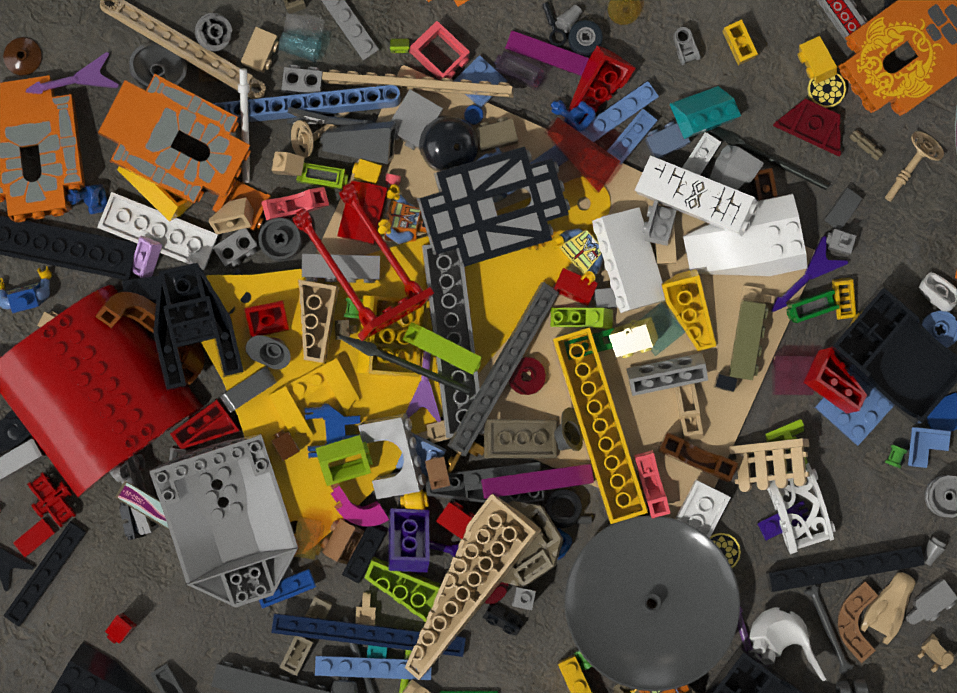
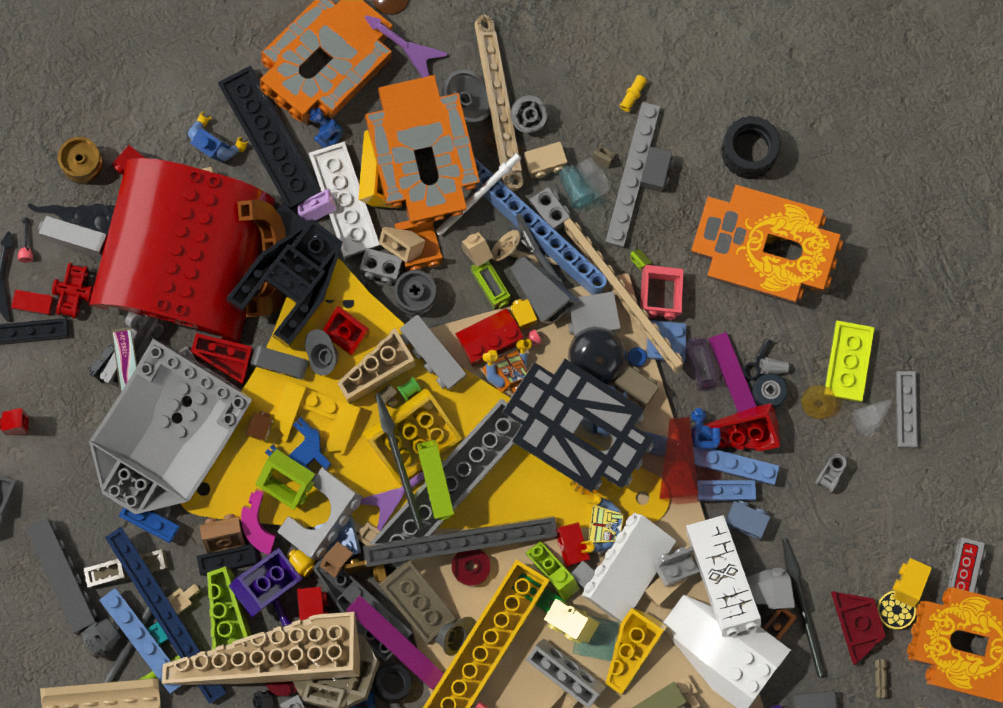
camera: 50 degrees right, 10 degrees down
(288, 206) = (451, 282): coral arch -> none
(307, 537) = (202, 504): clear yellow brick -> none
(415, 295) = (425, 417): red piece -> none
(702, 154) = (760, 556): white plate -> none
(704, 111) = (794, 529): teal slope -> none
(740, 42) = (871, 511): yellow brick -> none

